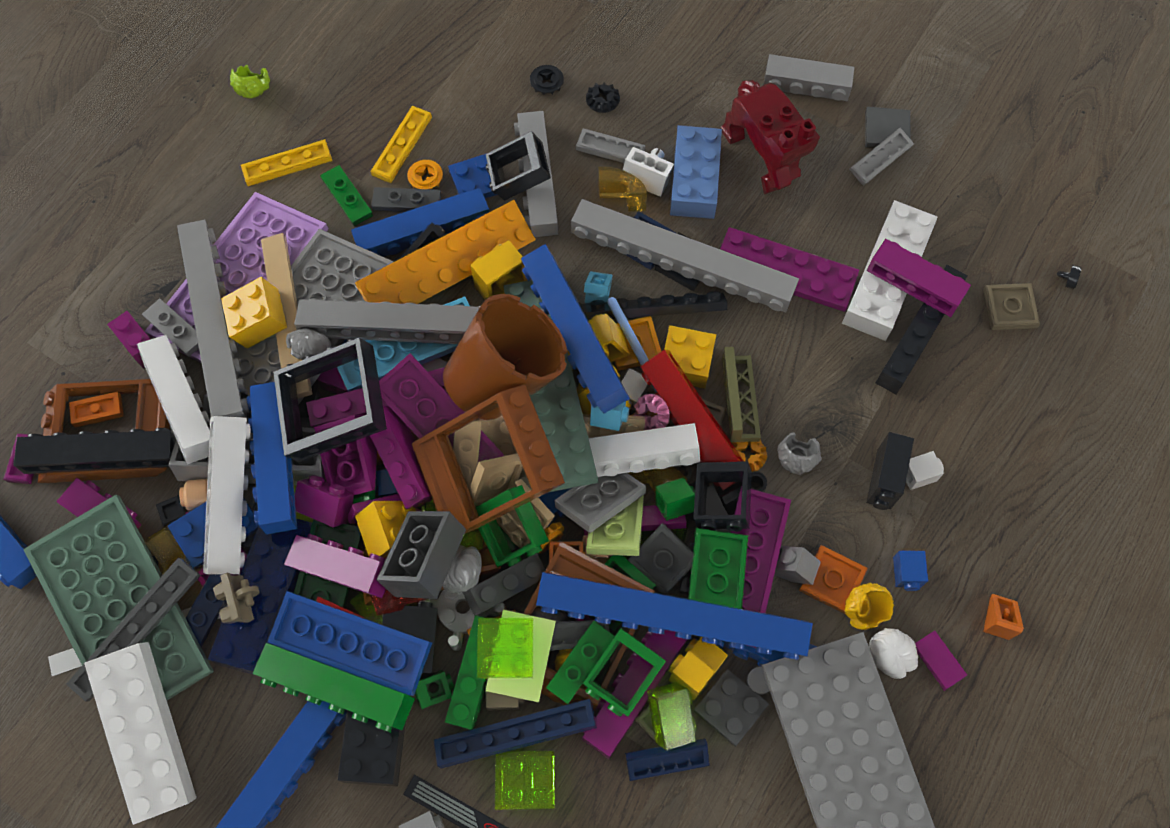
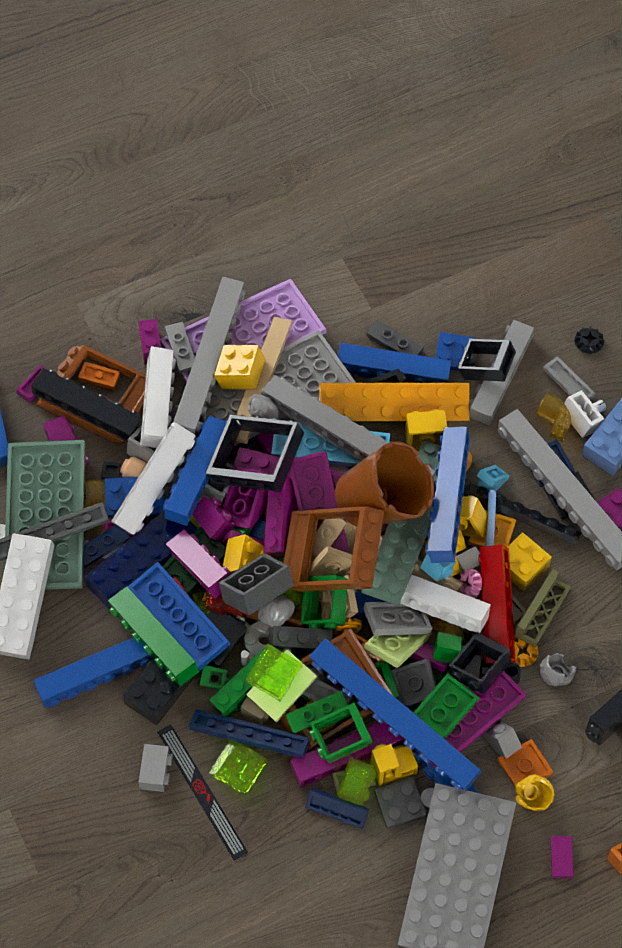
camera: 30 degrees right, 5 degrees down
(238, 596) = (126, 548): dark tan hips -> none
(249, 84) = (332, 192): lime hair -> none
(286, 162) = (325, 267): yellow tile -> none
(346, 195) = (354, 315): green plate -> none
(401, 144) = (416, 297): yellow tile -> none
(419, 169) = (419, 323): light orange gear -> none
(546, 72) = (559, 298): black gear -> none
(894, 652) = (532, 832): white hair -> none
(910, 570) = (581, 789): blue brick -> none

